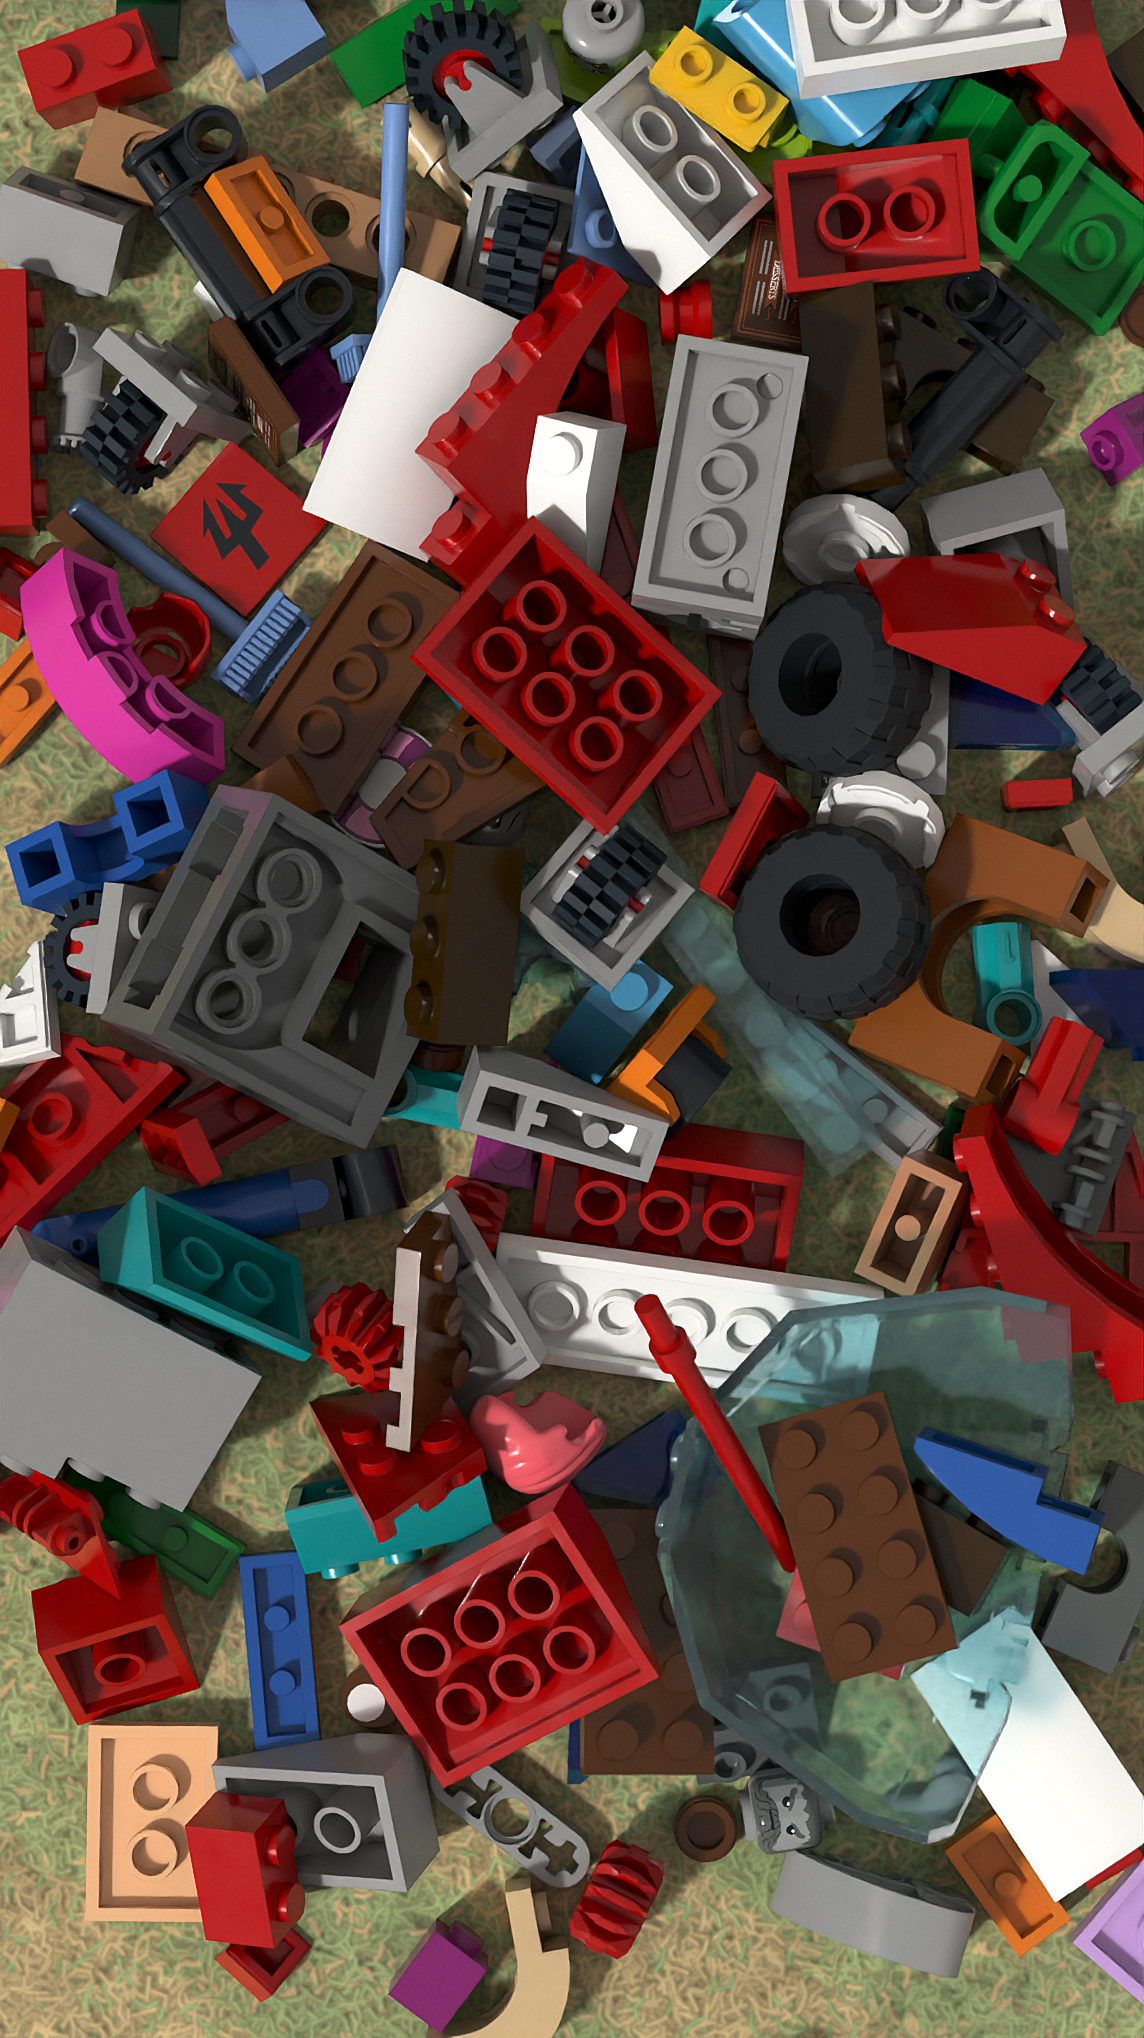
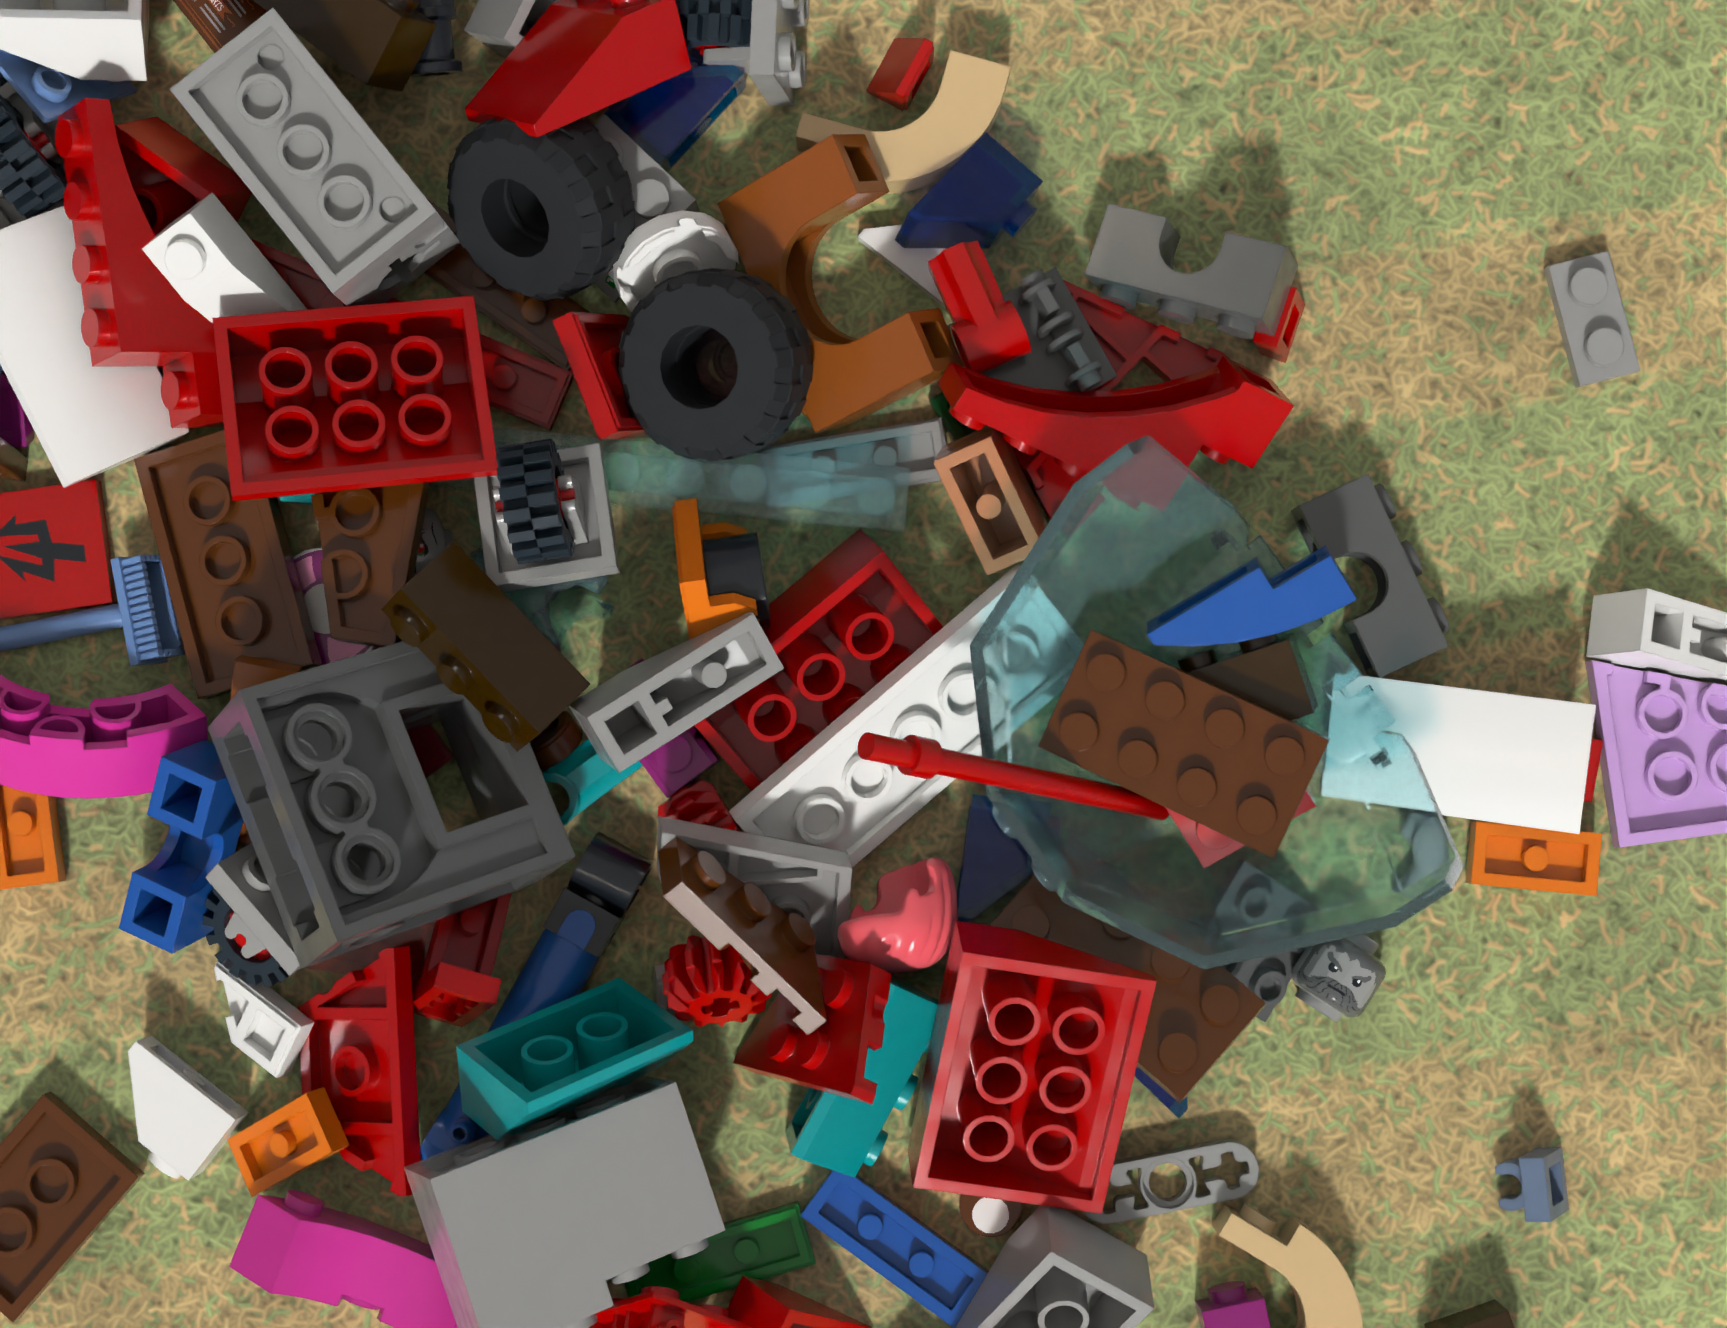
camera: 35 degrees left, 0 degrees up
(189, 622) = (63, 653): red hair -> none
(607, 1023) = (645, 594): dark azure slope -> none
(617, 1899) = (1296, 1156): red gear -> none
(685, 312) = (166, 72): red wheel -> none
(705, 1828) = (1301, 1044): reddish brown tile -> none
(837, 531) = (429, 109): white tile -> none
(876, 1913) = (1473, 973): light grey beam -> none
(1005, 978) = (869, 274): teal piece -> none
(1036, 795) = (756, 135): red tile -> none

